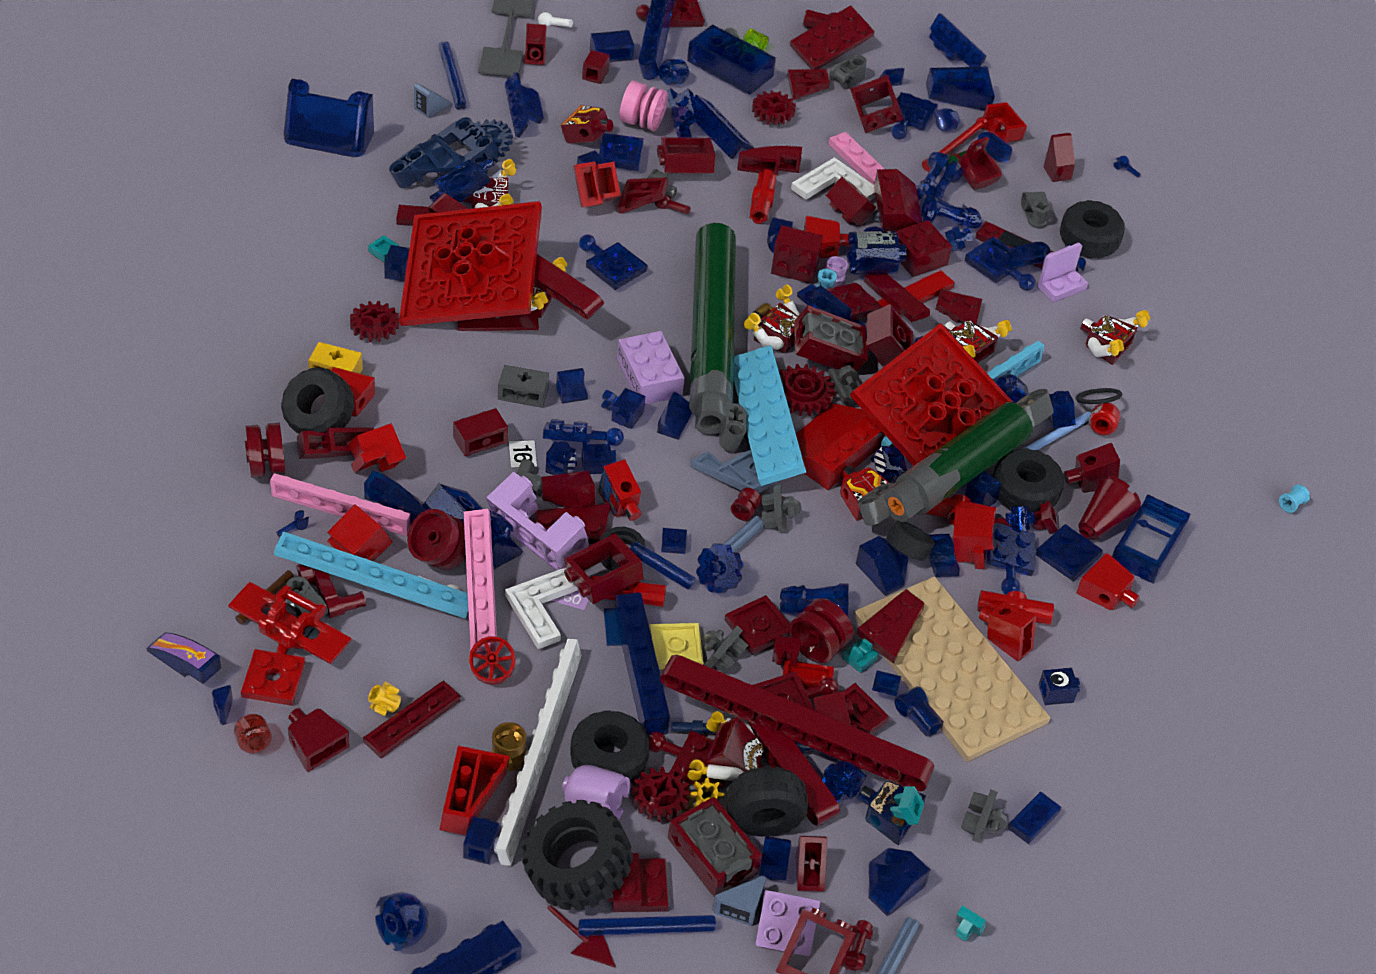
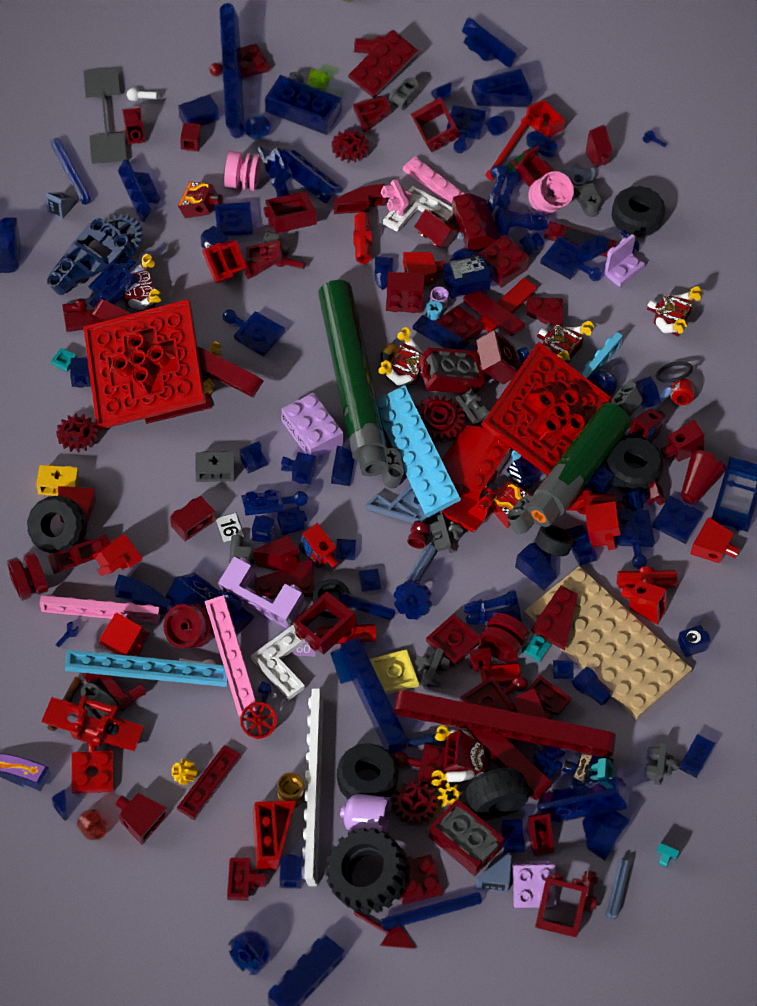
camera: 10 degrees left, 10 degrees up
(418, 200) = (79, 306): none -> dark red arm
(419, 836) = (242, 879): none -> dark red hinge
(513, 632) = (265, 689): none -> clear blue hand
(654, 503) = (345, 549): none -> clear blue plate
(813, 161) = (398, 197): none -> bright pink hips
(814, 493) = (469, 513): none -> red plate
(877, 833) = (584, 800): none -> clear blue slope
(993, 189) = (559, 190): none -> bright pink wheel
(1029, 183) = (578, 175): none -> sand blue plate
(1054, 440) = (649, 422): none -> dark red torso

